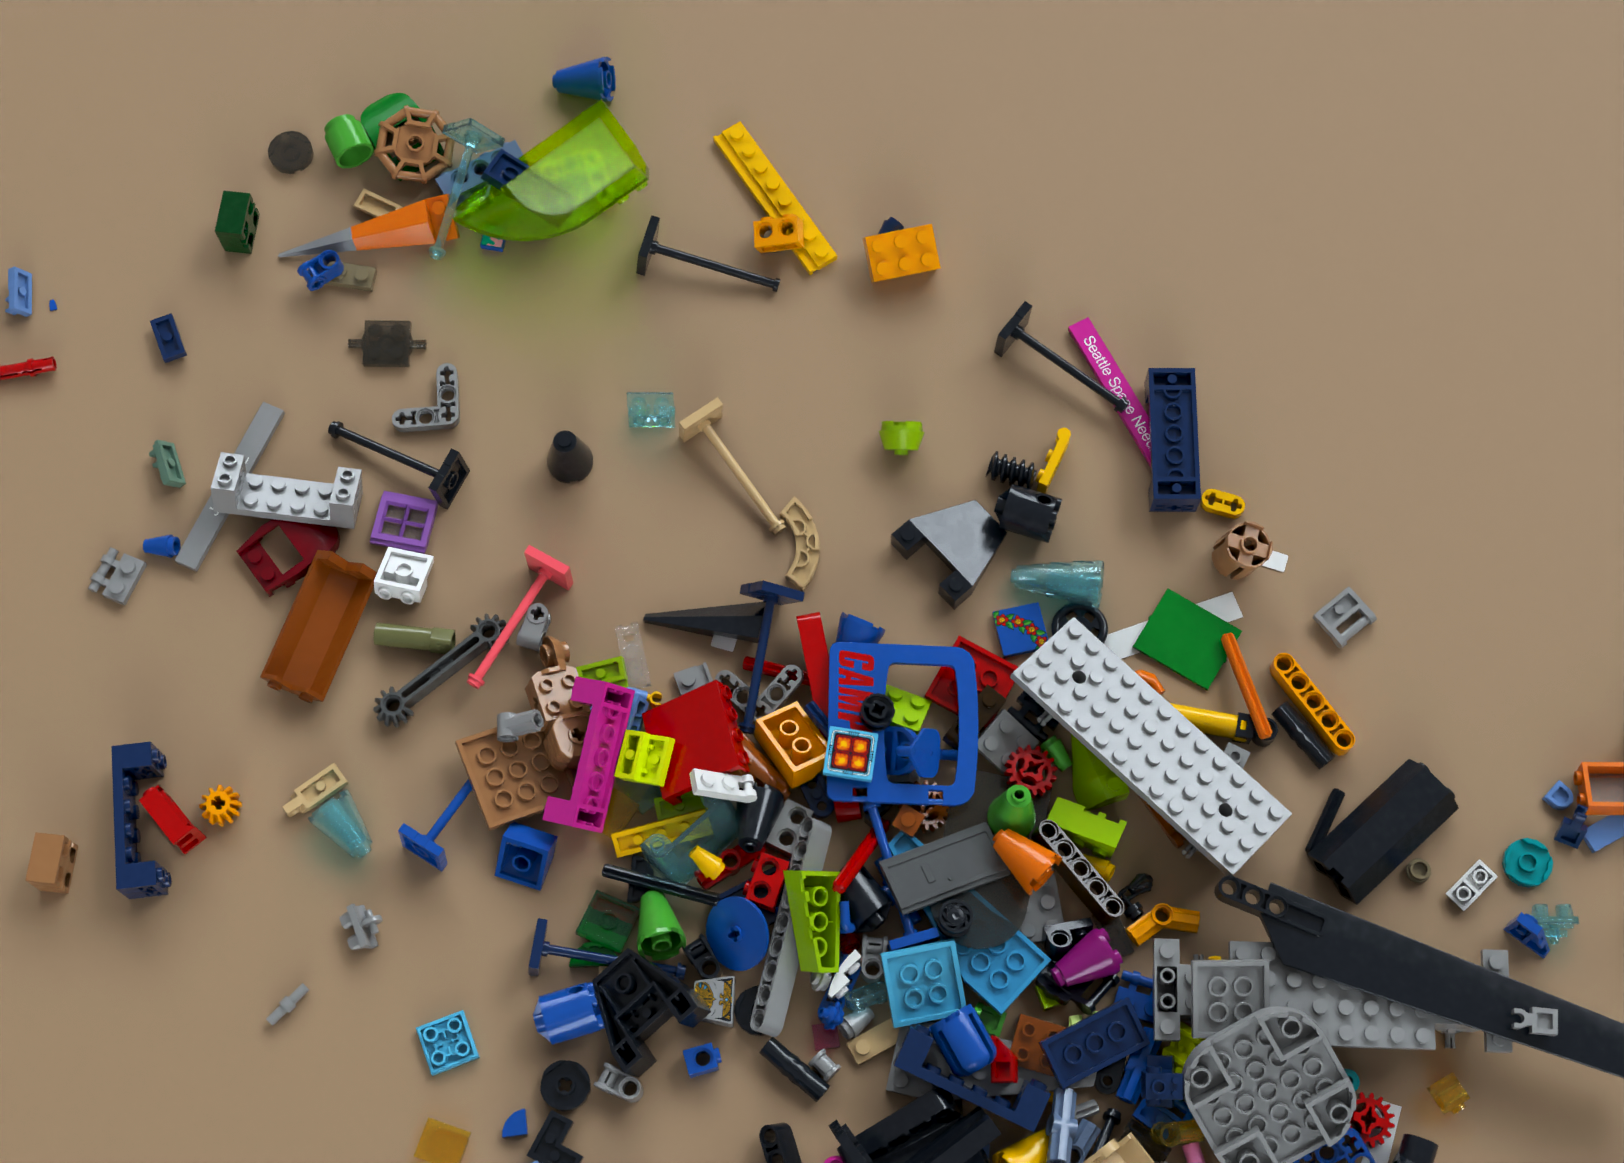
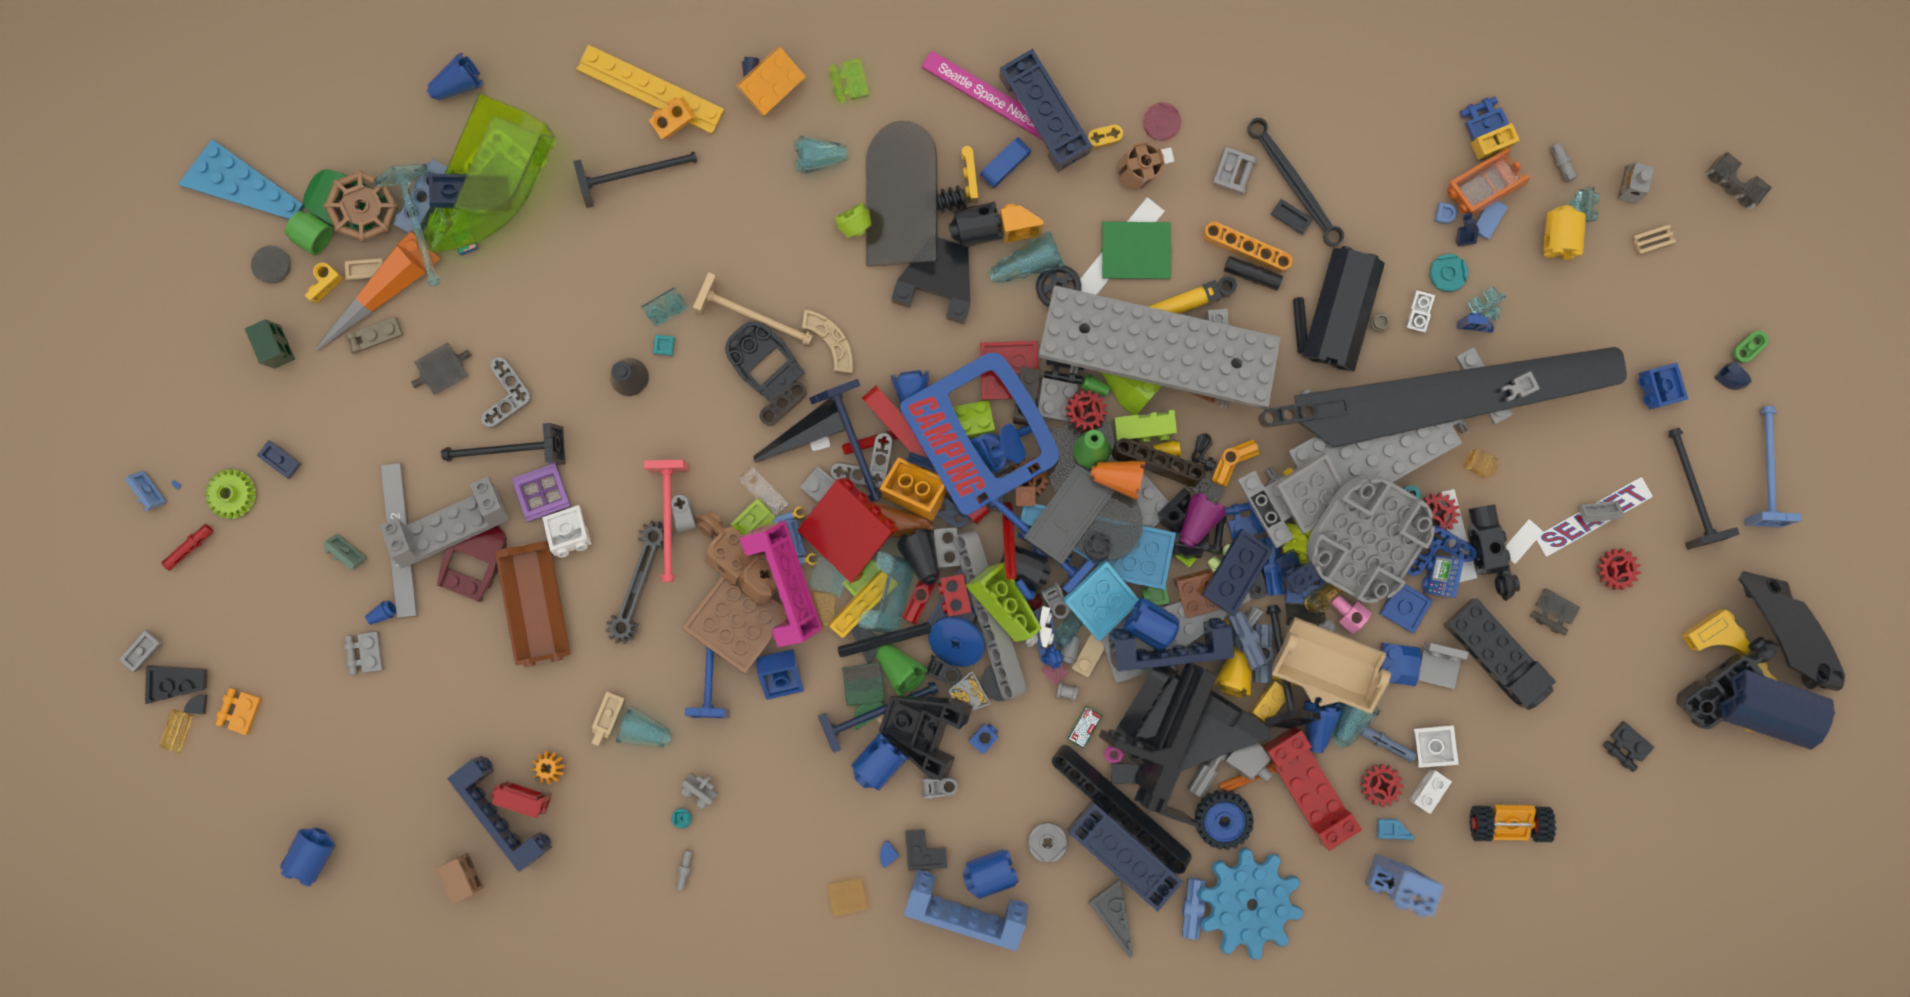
camera: 35 degrees left, 15 degrees up
(106, 352) = (241, 498): none -> lime gear
(309, 55) = (231, 179): none -> dark azure wing
(320, 270) = (356, 345): blue piece -> none
(322, 946) = (681, 818): none -> teal tile
(330, 199) = (325, 284): none -> yellow plate
(418, 638) = (605, 570): olive piece -> none
(447, 1042) = (807, 829): medium azure tile -> none
(513, 725) = (715, 593): light grey piece -> none
(565, 1100) = (894, 814): black plate -> none
(626, 449) = (664, 345): none -> teal tile
(644, 758) = (820, 562): neon yellow plate -> none
(707, 862) = (909, 608): yellow cone -> none
(713, 501) = (750, 346): none -> black slope
(719, 569) = (792, 402): none -> dark brown beam
(723, 785) = (888, 552): white plate -> none
(794, 1069) = (1048, 706): black axle -> none
(819, 1117) = (1084, 727): none -> tile
(850, 754) = (961, 476): tile -> none
(877, 712) = (961, 435): black wheel -> none
(906, 350) = (817, 154): none -> clear light blue cone
(967, 440) = (901, 196): none -> clear smoke piece
(991, 300) = (855, 80): none -> clear neon green plate
(1005, 1065) = (1188, 624): red tile -> none
(1015, 330) = (889, 93): black tile -> none
(1020, 629) = (1019, 312): blue tile -> none
(1073, 534) = (1019, 224): none -> light orange slope
(1098, 469) = (1005, 162): none -> blue beam
(1152, 680) = (1128, 295): orange arm -> none
(1246, 685) = (1195, 260): orange axle -> none
(1294, 523) = (1162, 121): none -> clear pink tile
(1381, 701) = (1291, 216): none -> black tile
(1406, 667) = (1295, 182): none -> black piece

